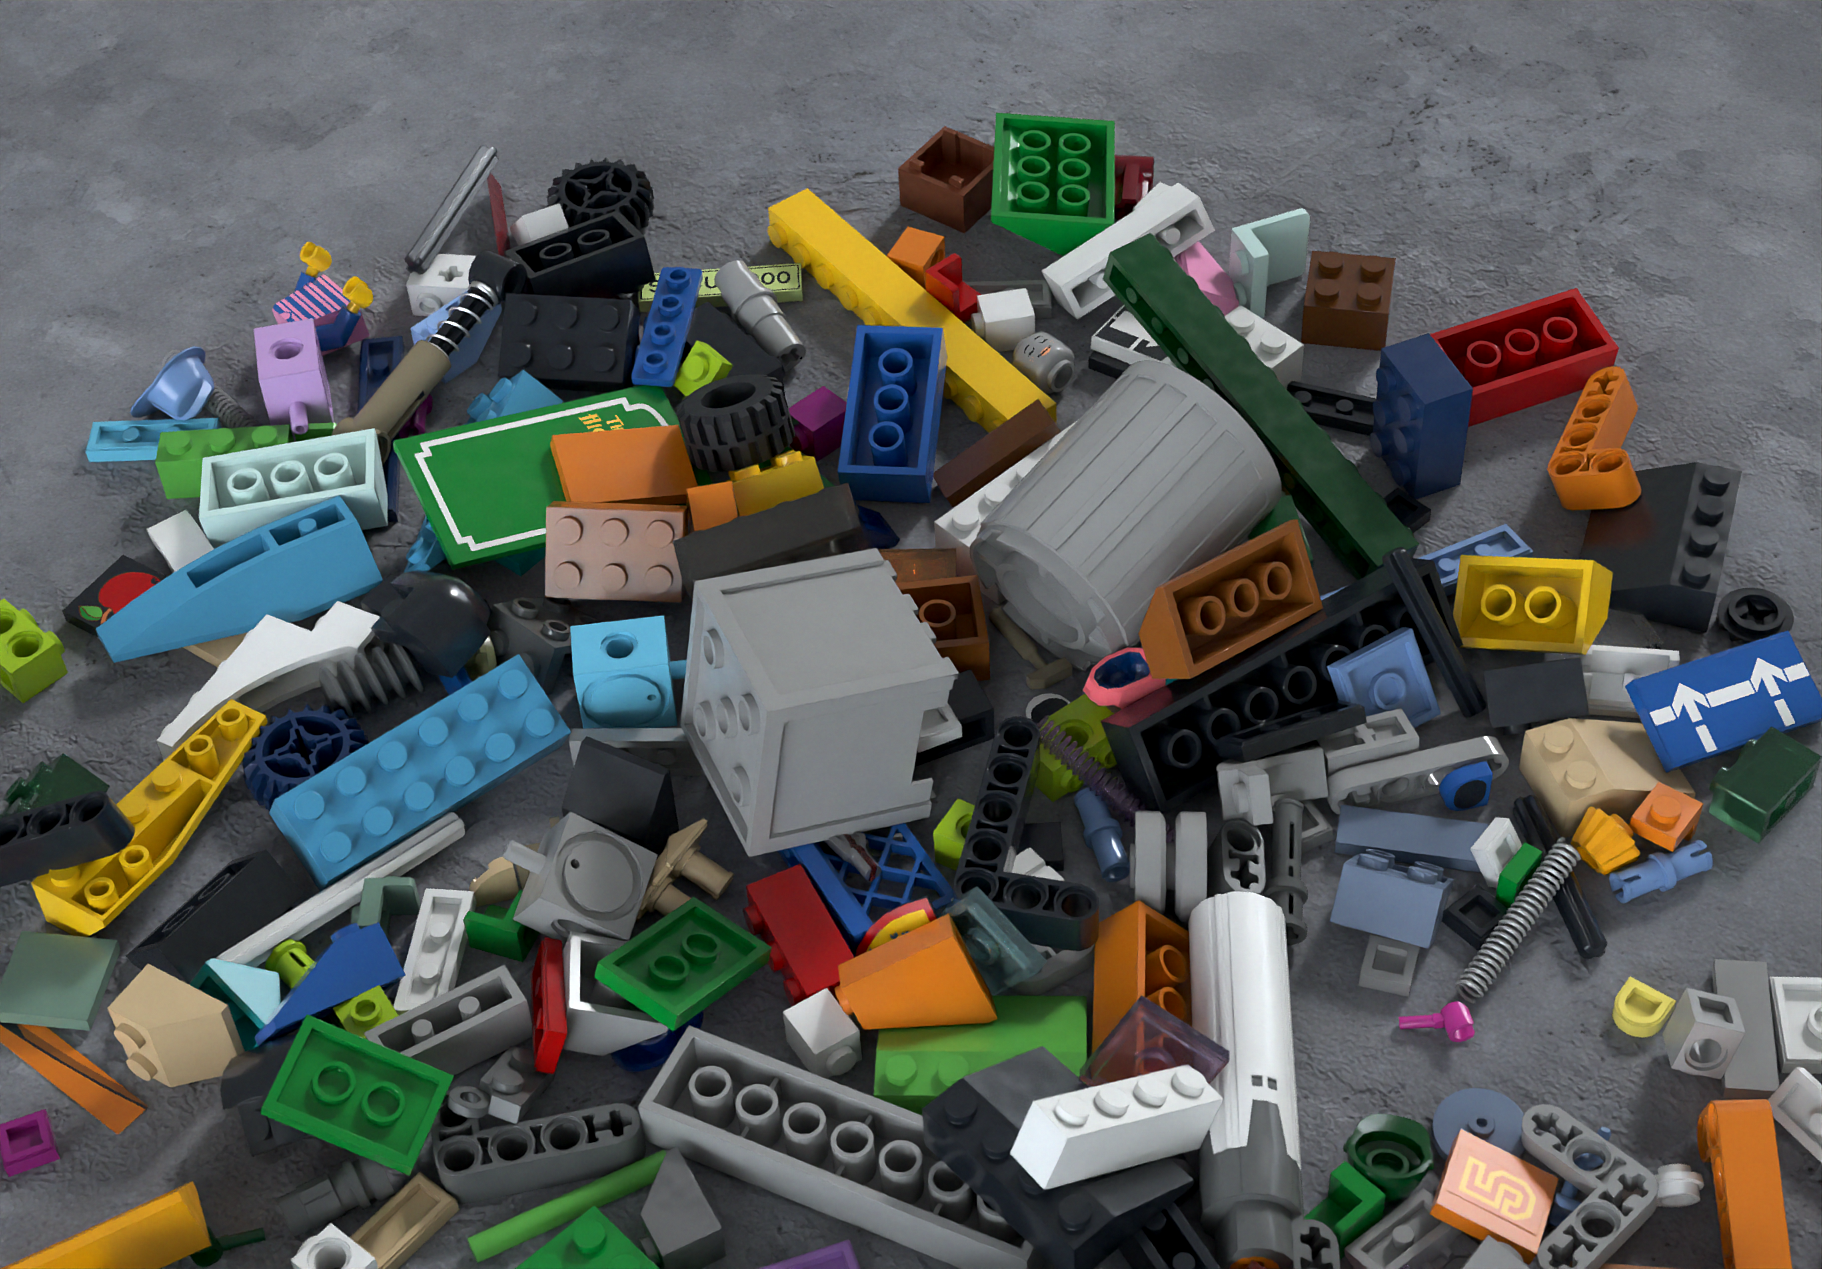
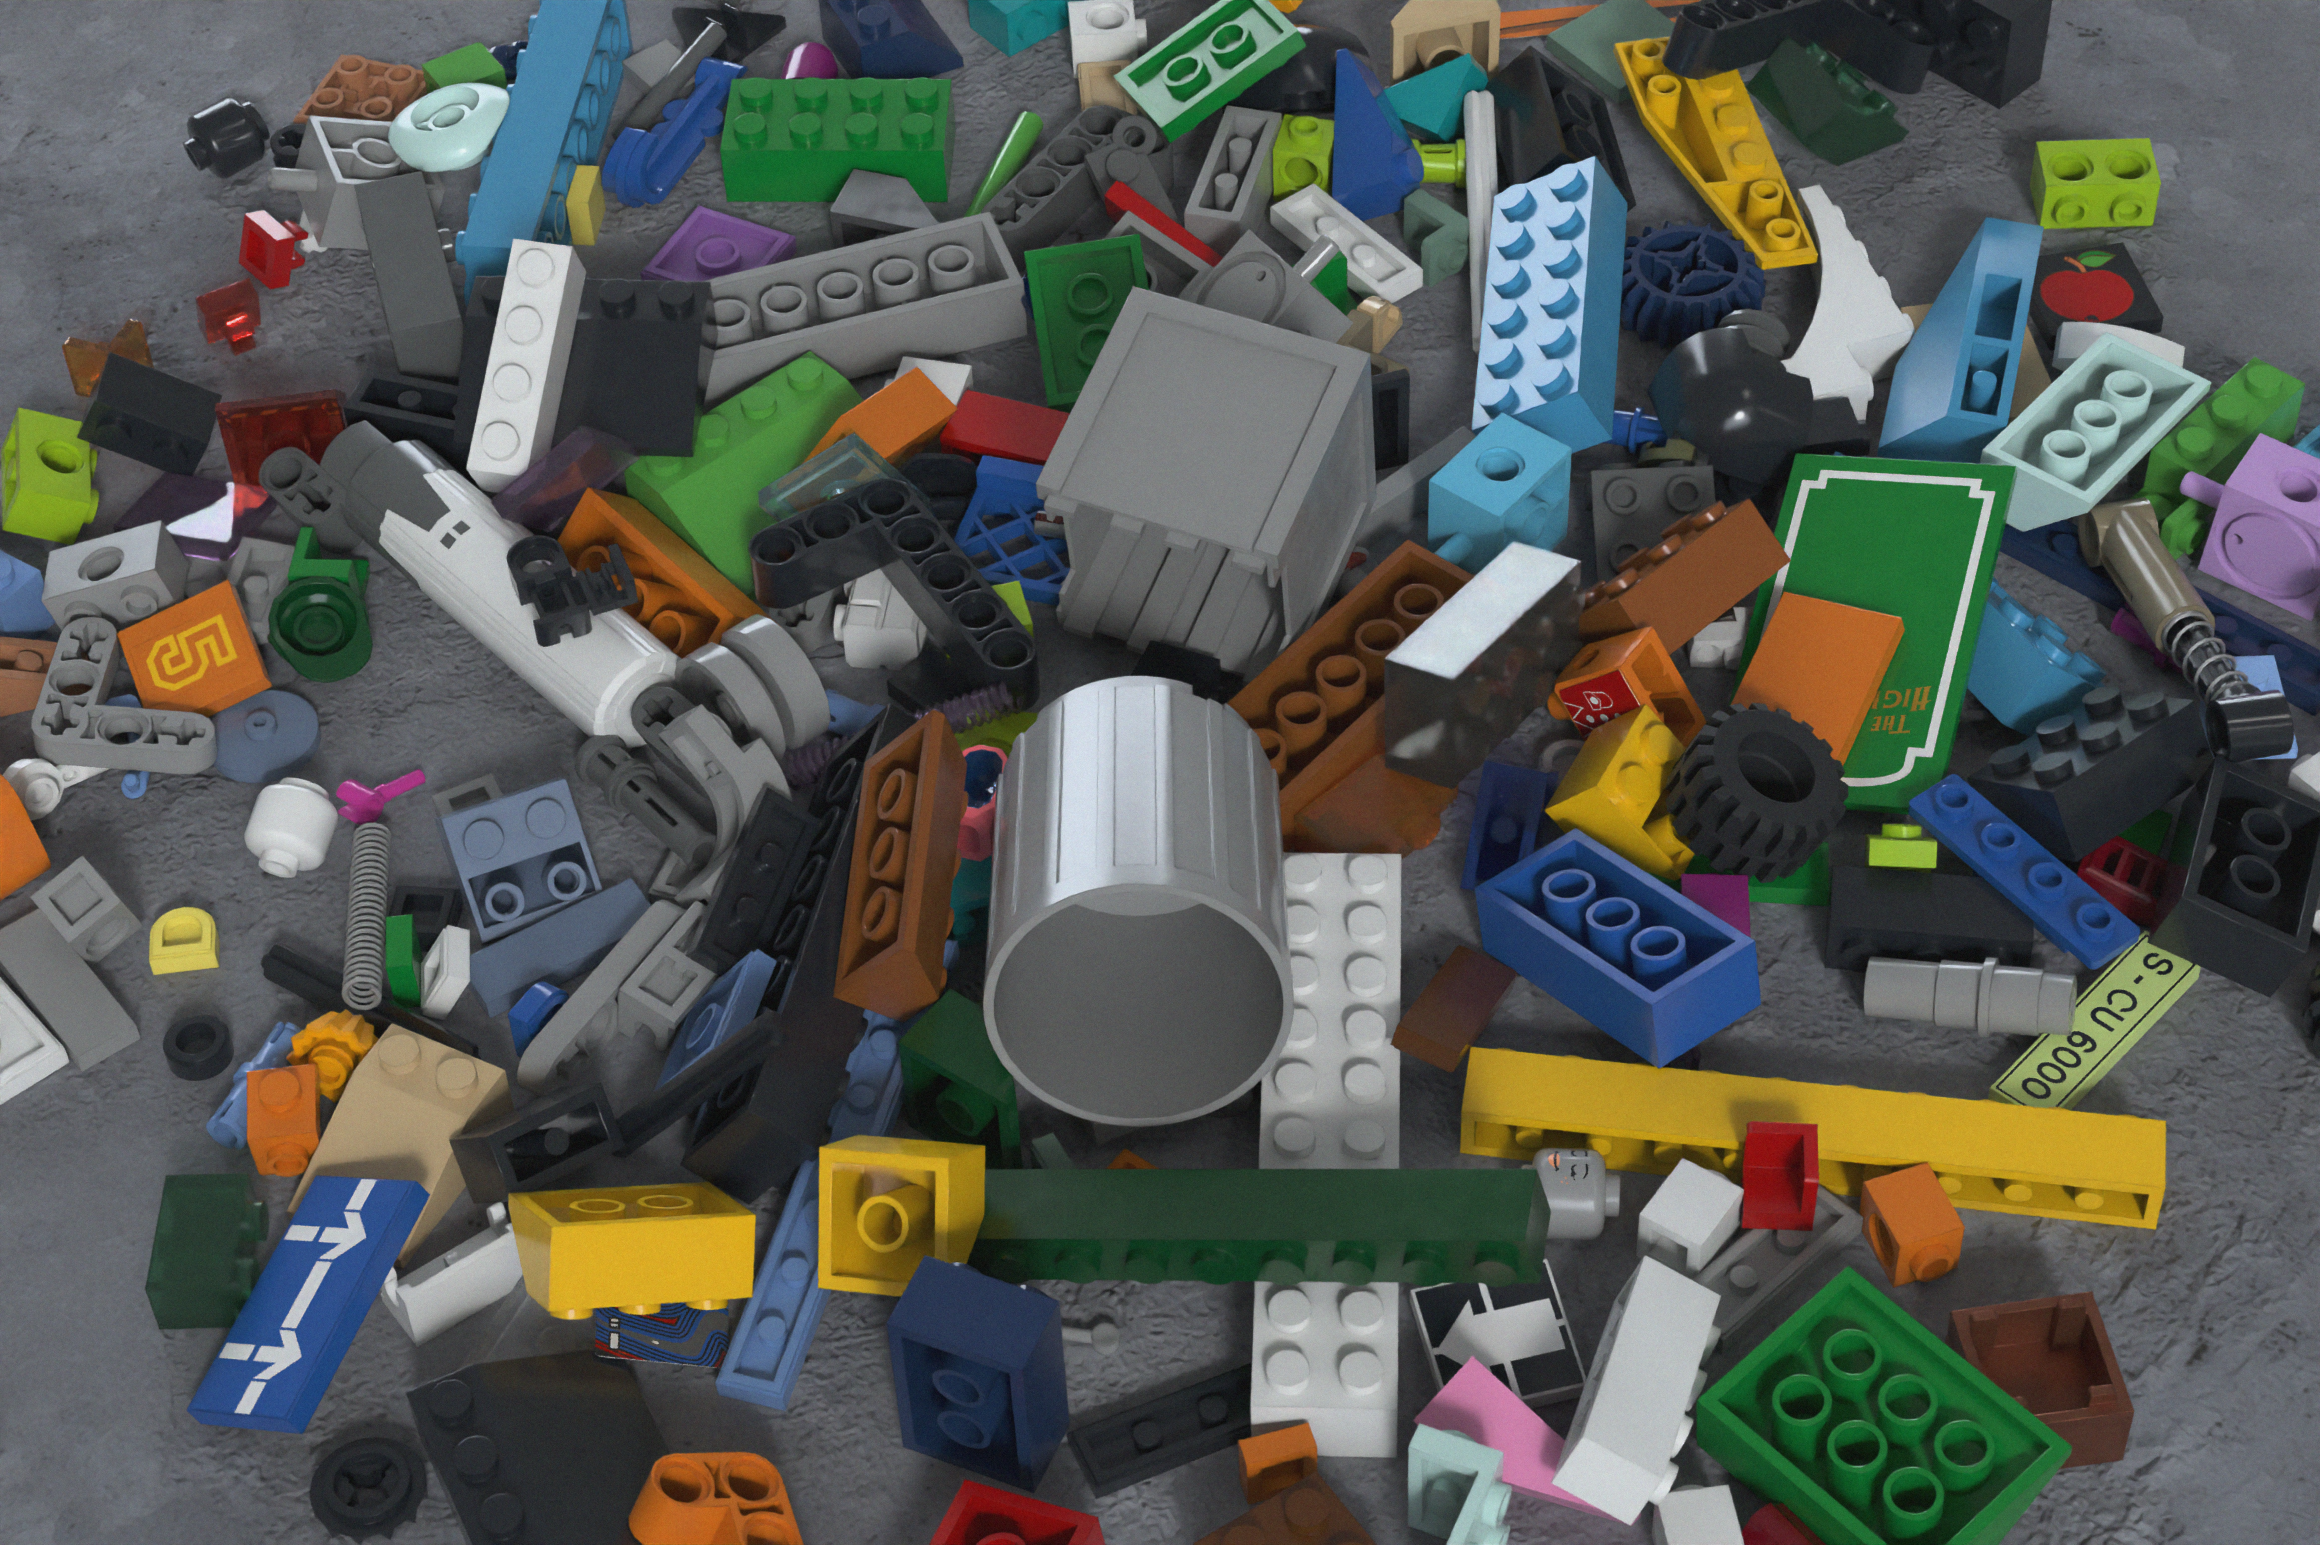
camera: 135 degrees right, 0 degrees up
(938, 727) = (1138, 652): white tile -> none
(1242, 954) = (565, 600): none -> black piece
(1314, 348) = (1276, 1461): none -> orange tile
(1387, 496) = (891, 1206): none -> yellow slope
(1520, 1019) = (291, 827): none -> white head
(1680, 930) = (198, 1047): none -> black tile

